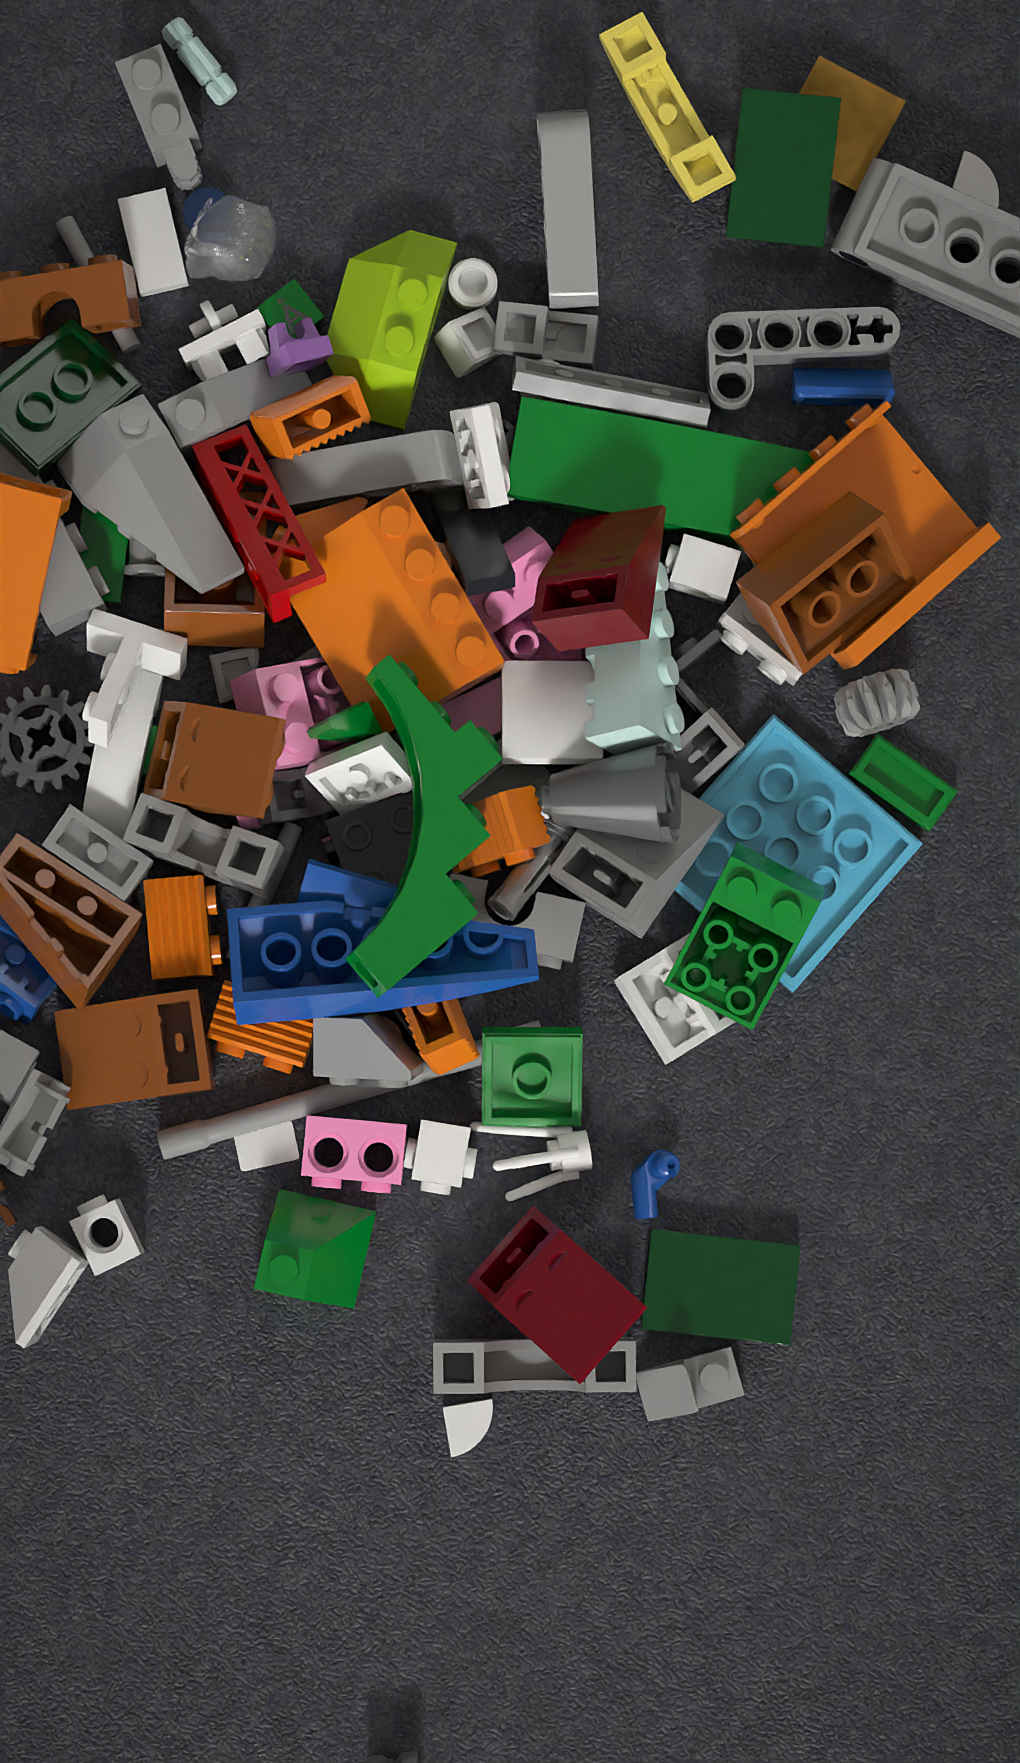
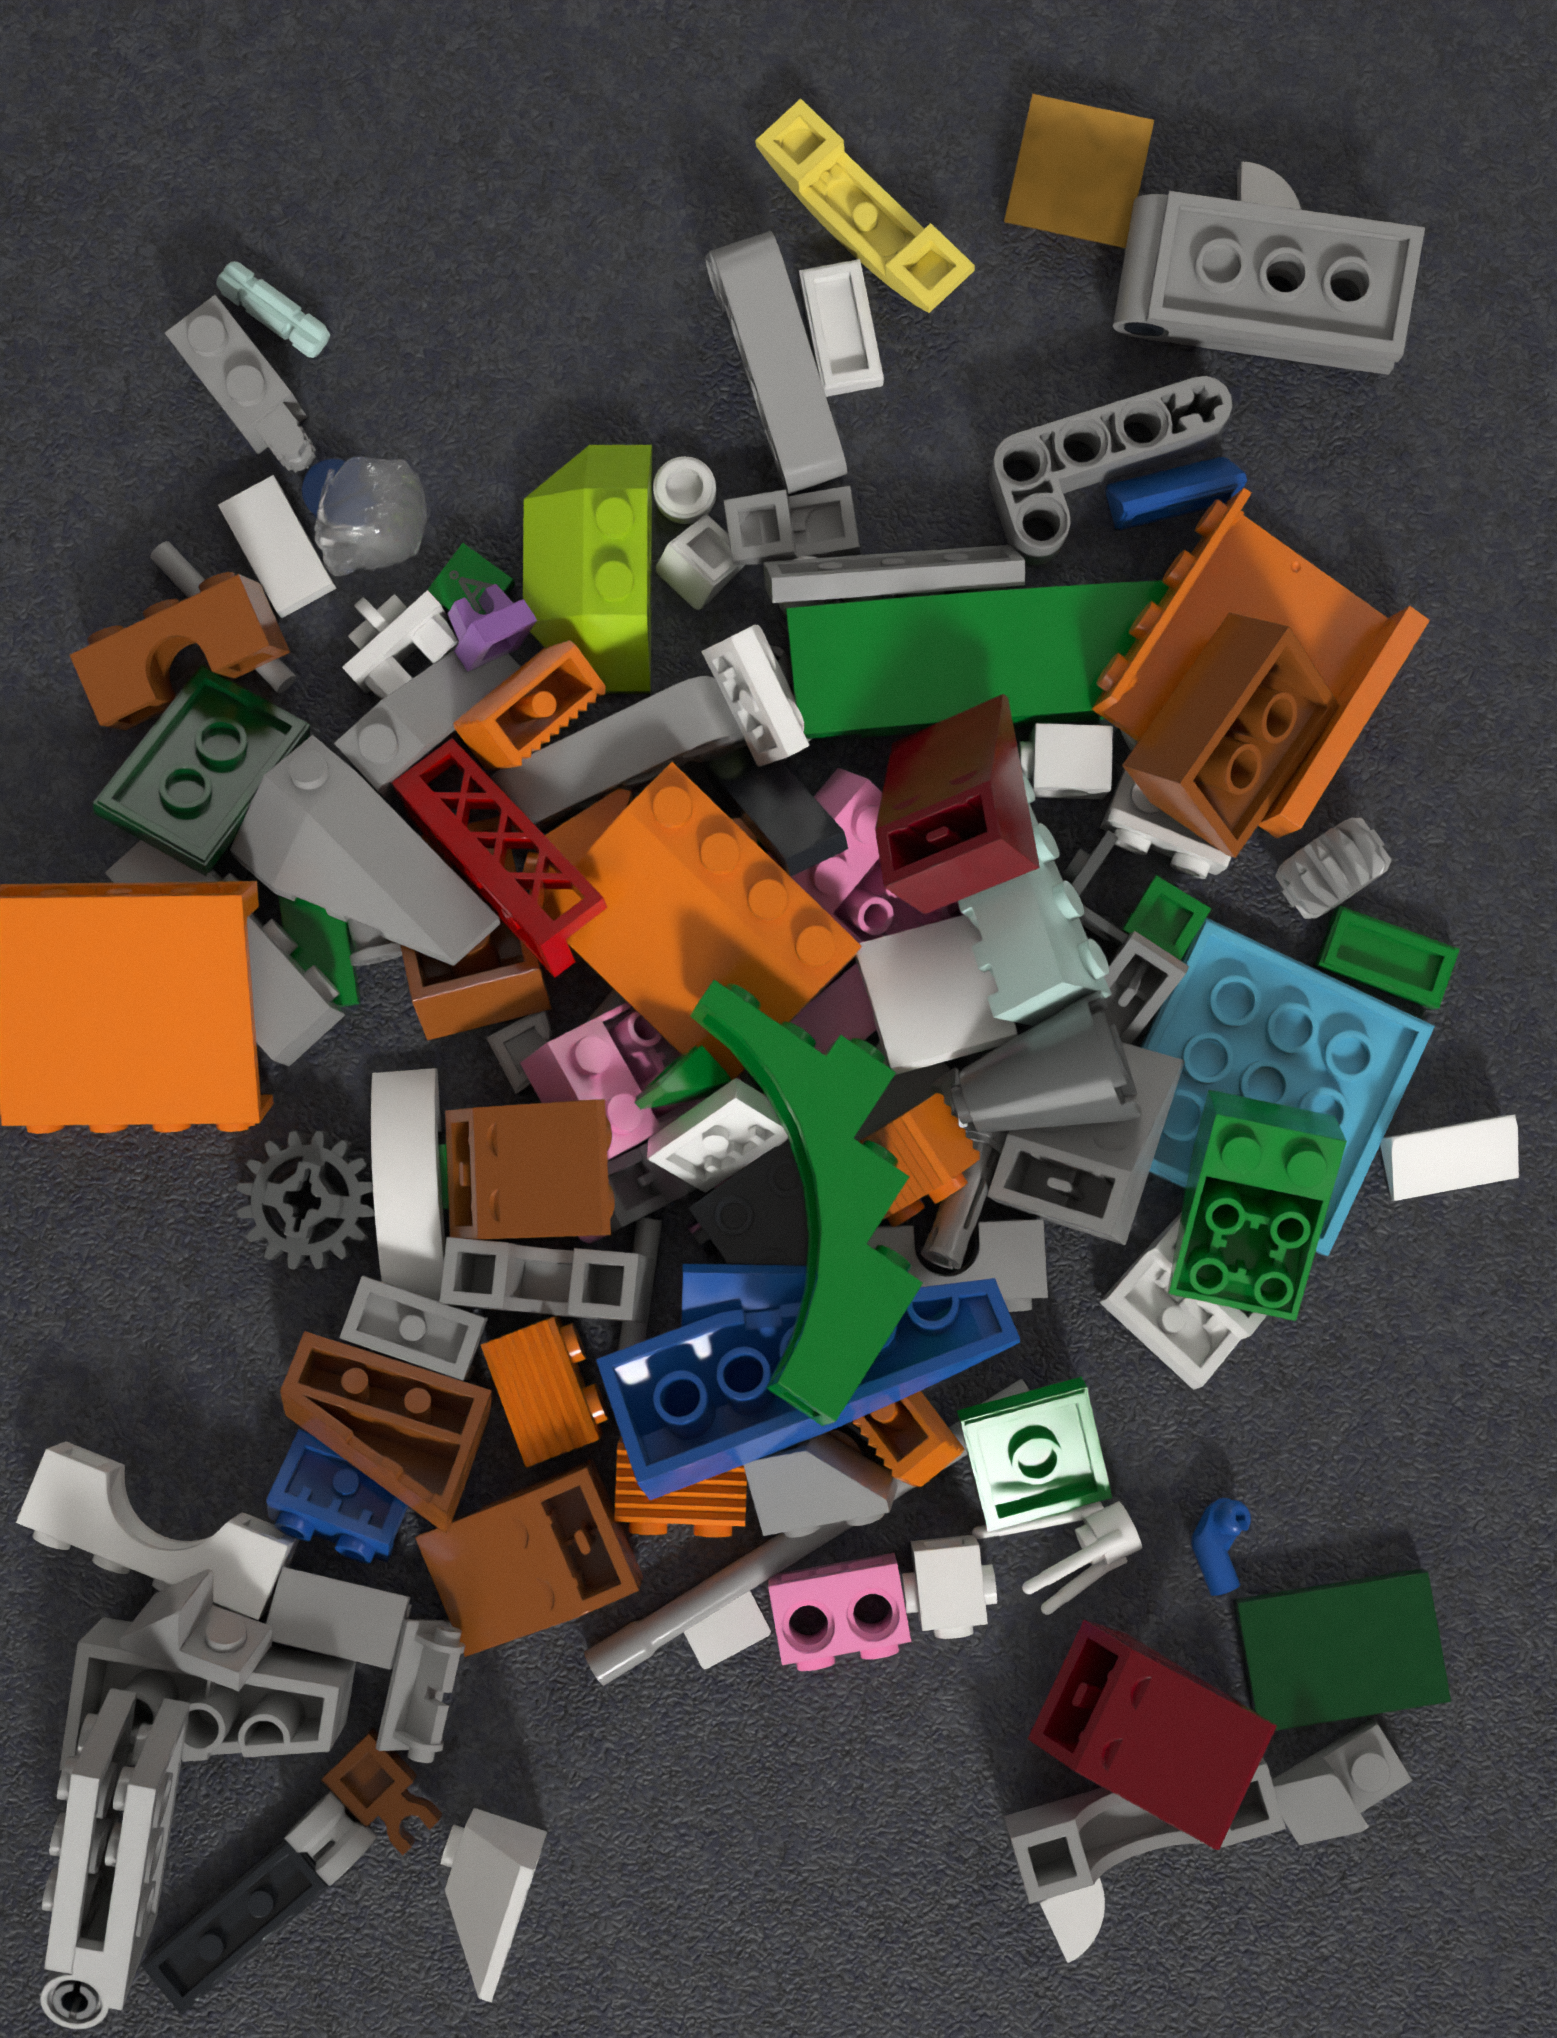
camera: 10 degrees left, 0 degrees up
(127, 651) = (383, 1060): white bracket -> none
(127, 1244) = (563, 1832): white brick -> none
(315, 1249) = (823, 1749): green slope -> none
(625, 193) = (841, 327): none -> white tile
(742, 706) = (1167, 917): none -> green tile
(783, 167) = (1028, 240): dark green tile -> none
(907, 944) = (1451, 1157): none -> white slope

